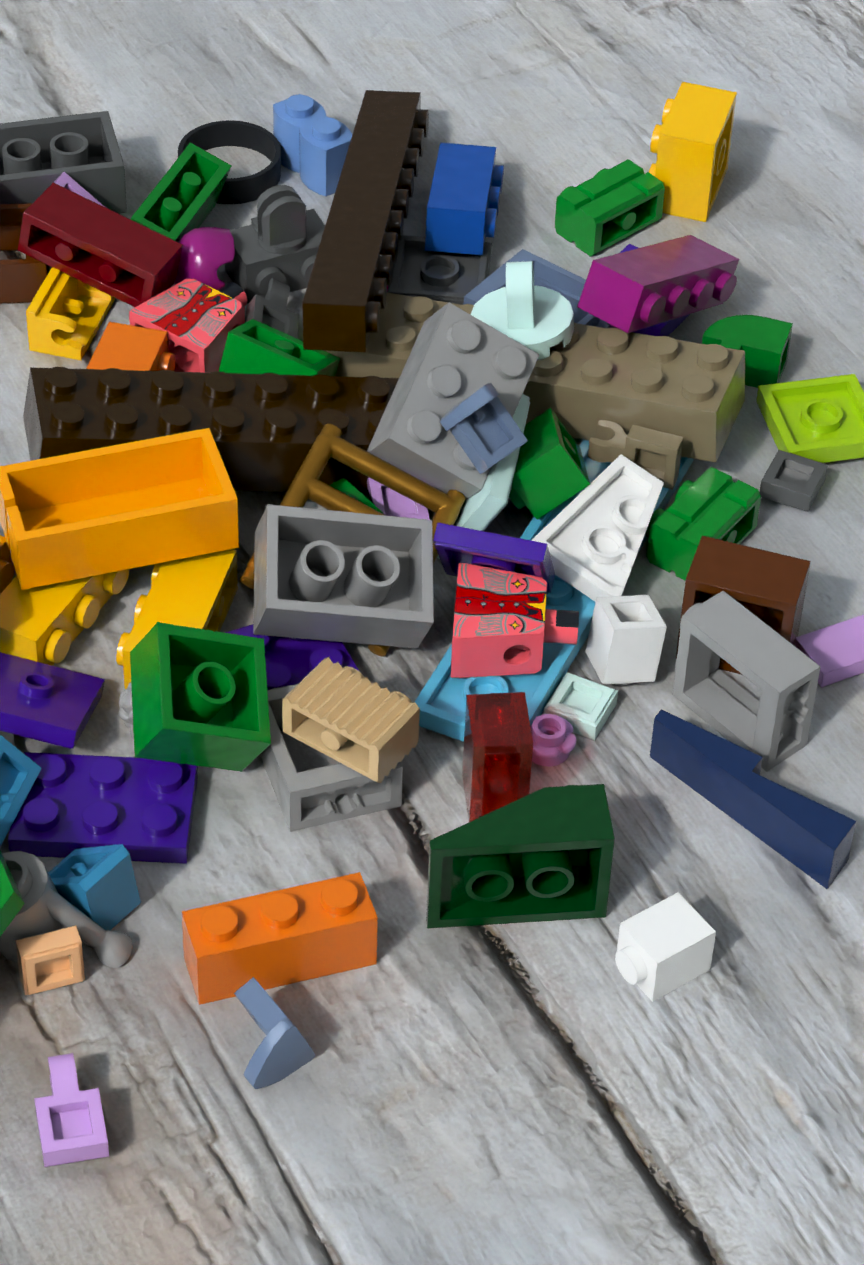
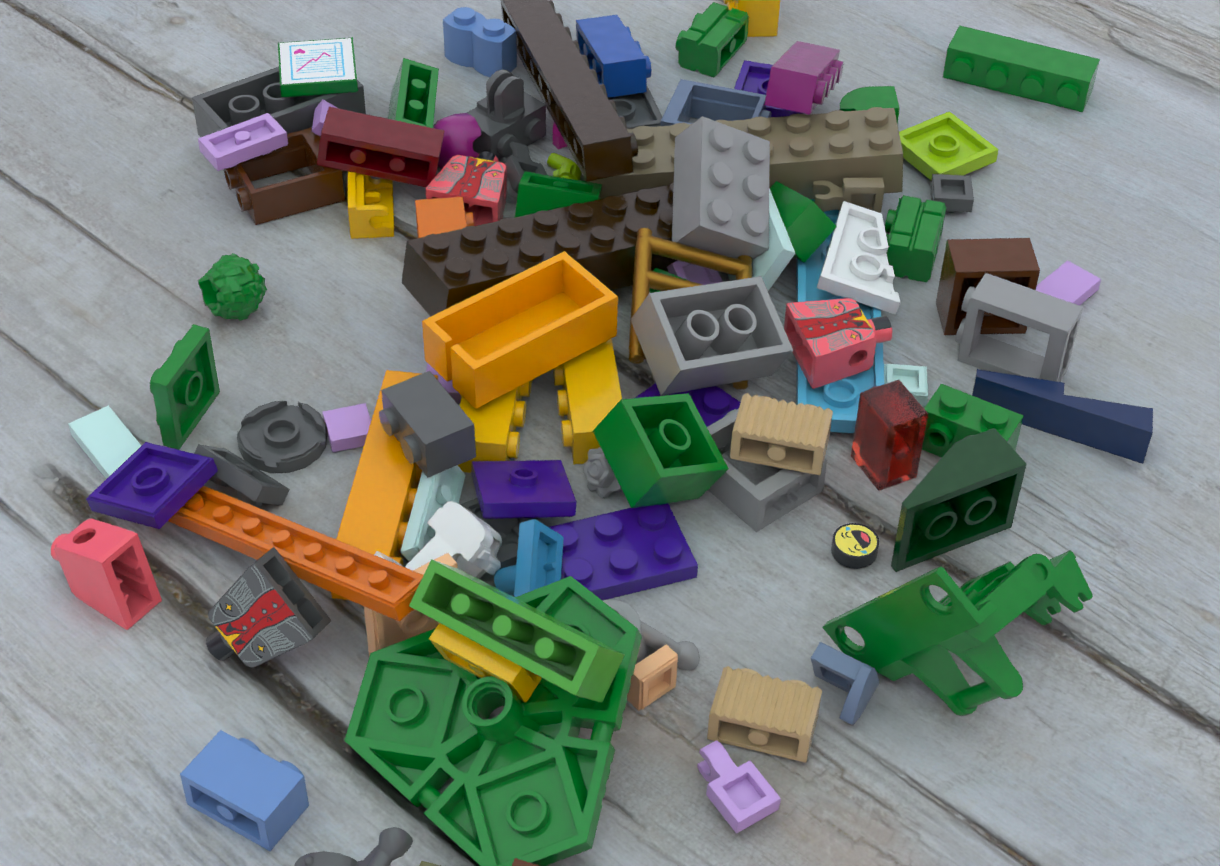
camera: 20 degrees left, 0 degrees up
(79, 130) = (317, 67): none -> tile
(98, 883) = (657, 602): dark azure slope -> none
(153, 1042) = (764, 713): none -> tan brick
(241, 135) = (427, 49): black tyre -> none
(280, 937) = (791, 617): orange brick -> none
(393, 881) = (855, 545): none -> tile
(395, 1022) = (912, 631): none -> green container
(484, 428) = (761, 201): sand blue tile -> none
(492, 550) = (811, 287): dark purple plate -> none
(527, 312) = (734, 110): light aqua tile -> none
(625, 639) = (919, 328): white brick -> none
(635, 787) = (959, 414): none -> green brick
(664, 947) = (1075, 527): white brick -> none

